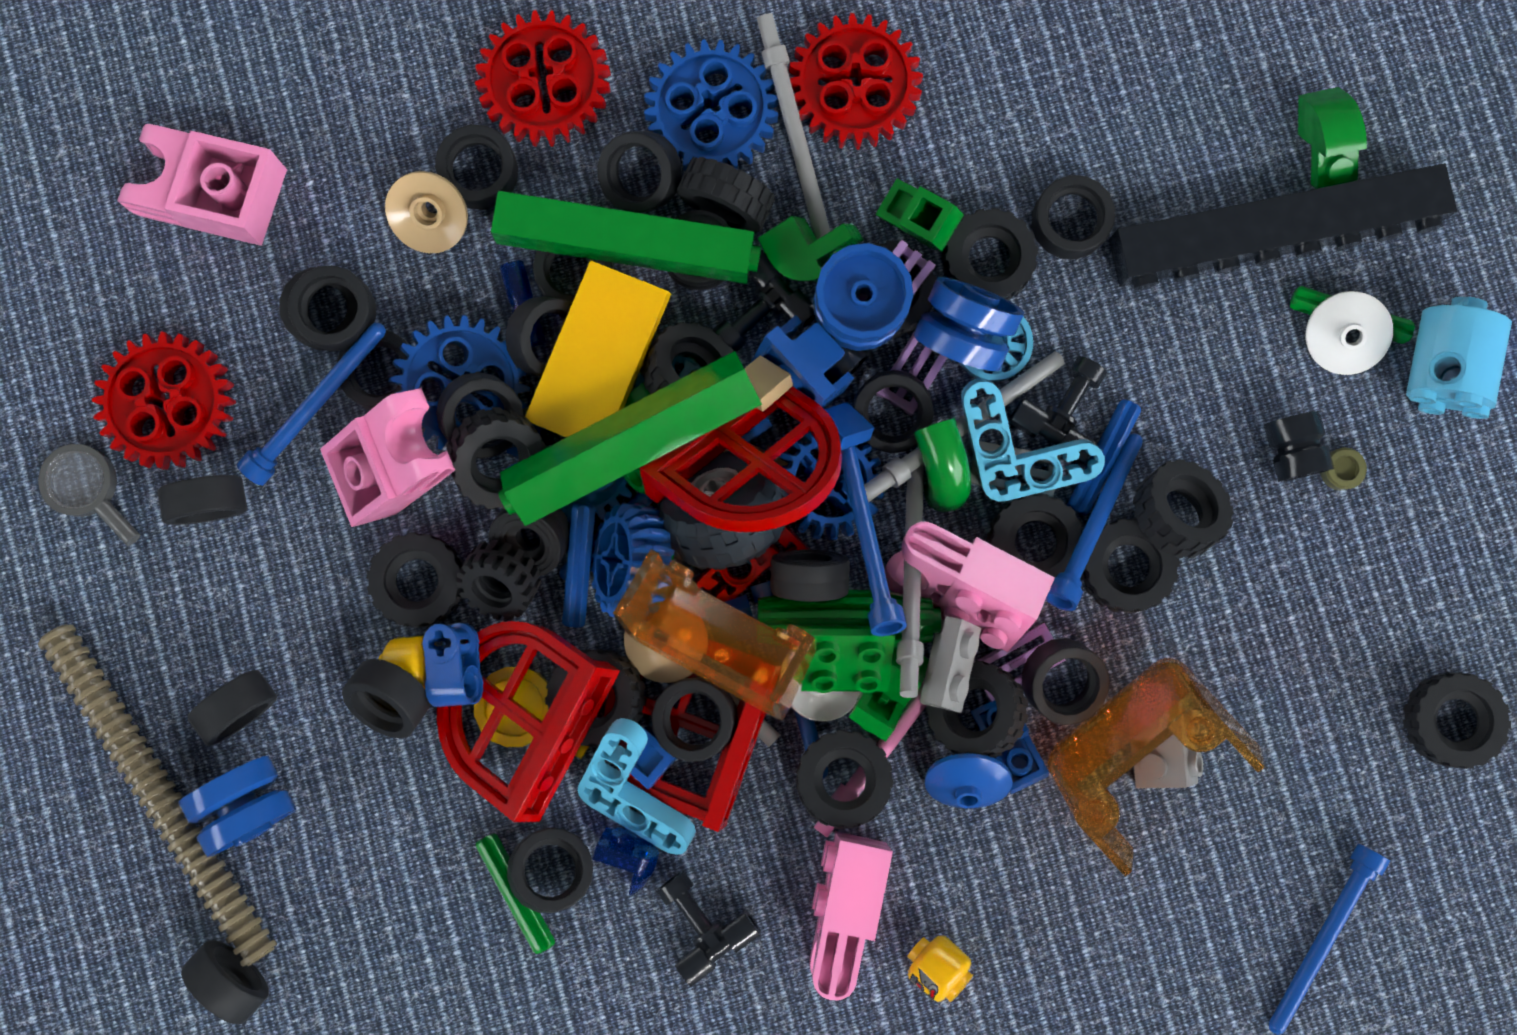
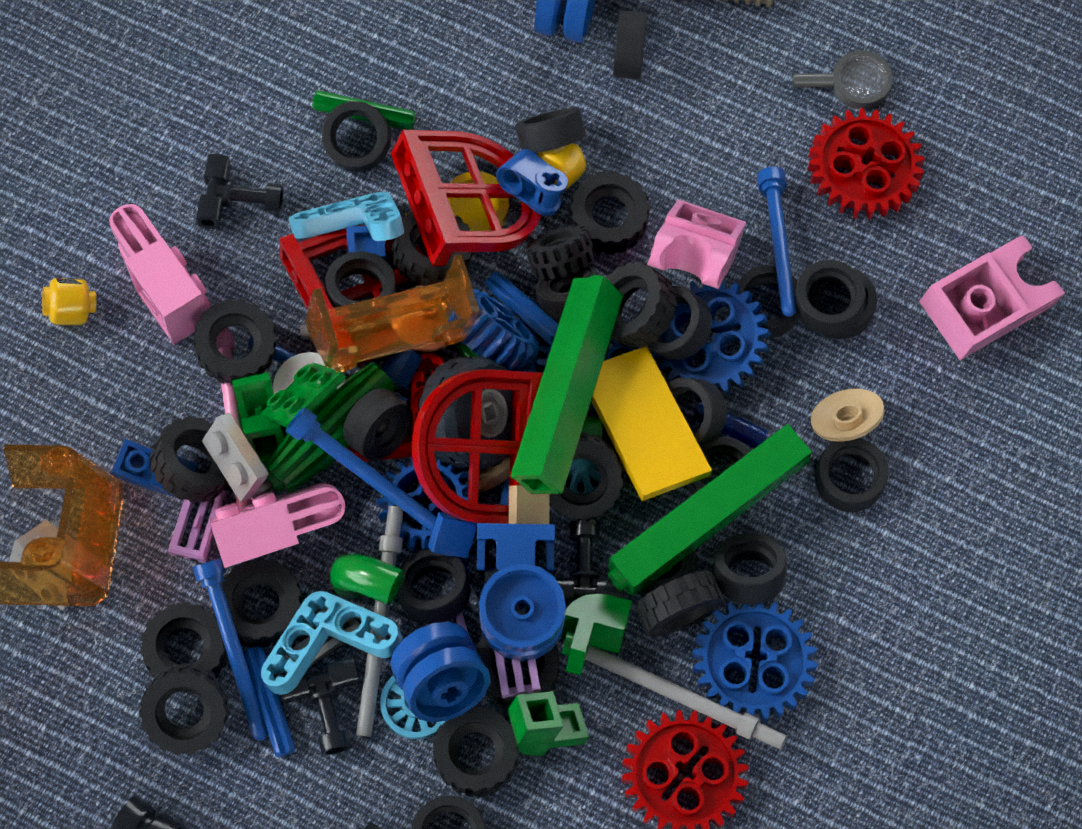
camera: 135 degrees right, 15 degrees down
(202, 499) = (776, 130): black tyre -> none
(506, 84) = (857, 595): red gear -> none
(627, 852) = (322, 186): clear blue plate -> none
(910, 649) = (269, 431): light grey bar -> none
(968, 780) = (156, 414): blue dish -> none
(1086, 703) = (135, 519): black tyre -> none

